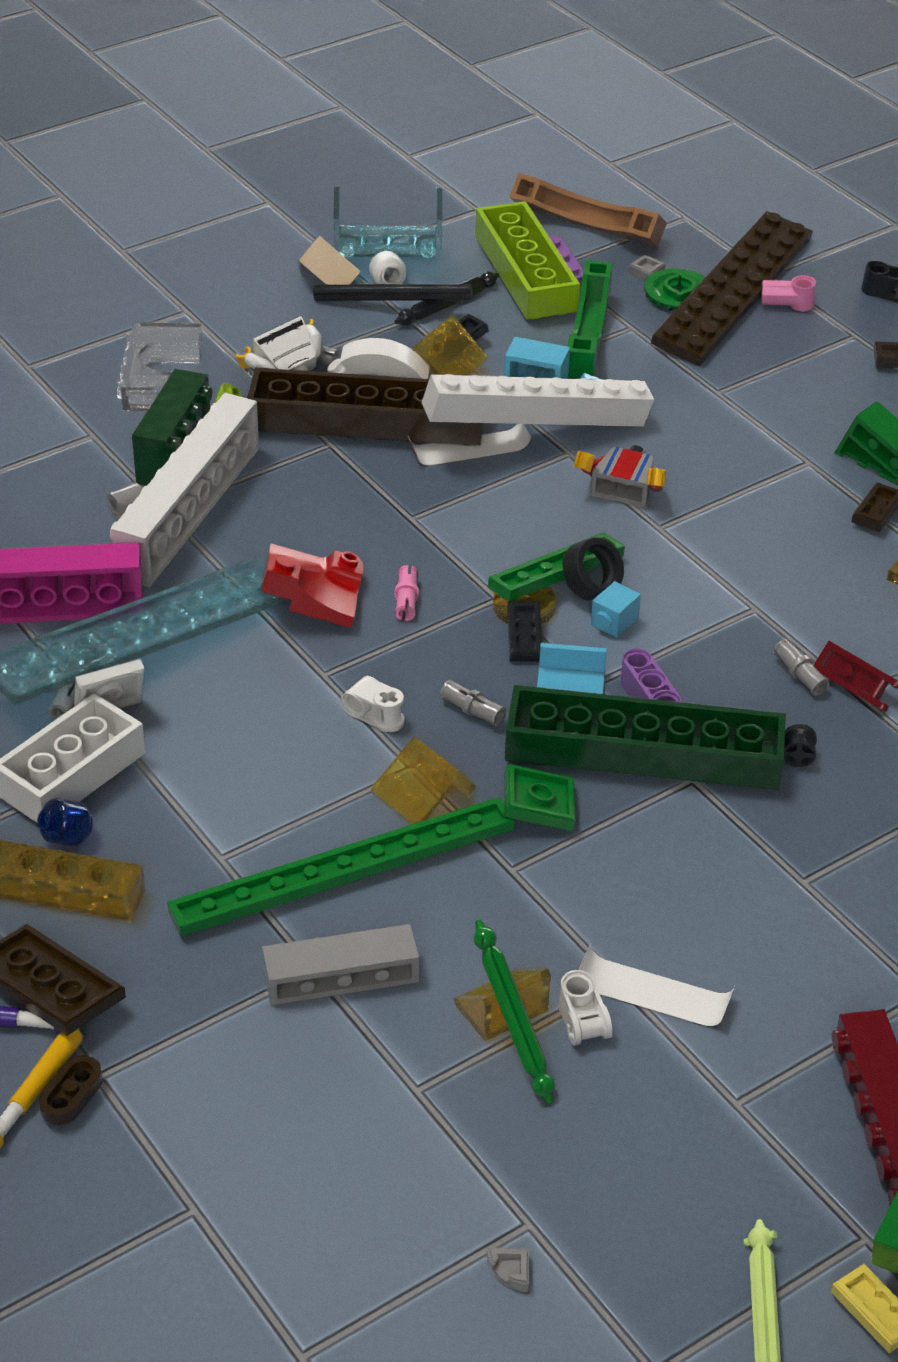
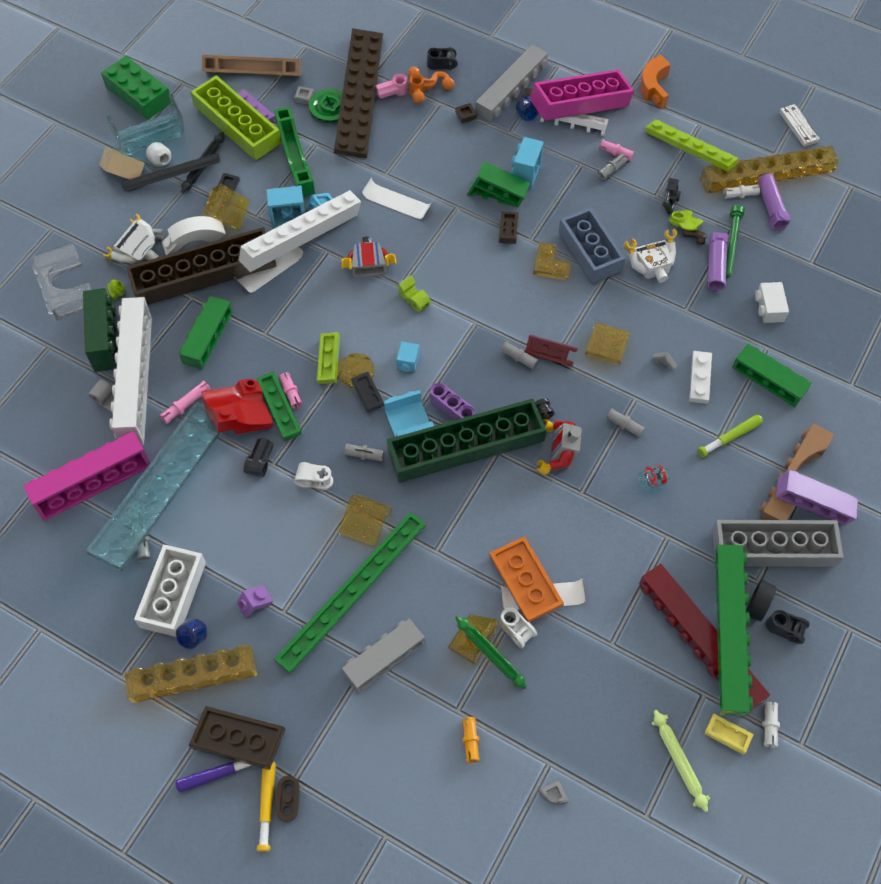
camera: 25 degrees left, 20 degrees up
(117, 684) = (168, 534): white tile -> none
(185, 818) = (253, 599): none -> medium lavender bracket
(232, 555) = (182, 404): none -> bright pink pin
(301, 659) = (258, 461): none -> black piece
(324, 484) = (205, 332): none -> green brick
(377, 604) = (279, 406): none -> green plate
(403, 188) = (136, 87): none -> green brick
(412, 1132) = (470, 740): none -> light orange pin
(497, 558) = (328, 358): none -> lime plate
(539, 797) = (430, 501): green tile -> none
(541, 572) = (363, 342): green plate -> none
(574, 567) = (376, 340): black tyre -> none
(638, 954) = (526, 579): none -> orange plate
(665, 533) = (417, 298): none -> lime leg
(688, 409) = (395, 200): none -> white sticker
(806, 801) = (564, 445): none -> torso
(833, 301) = (418, 84): none -> orange piece

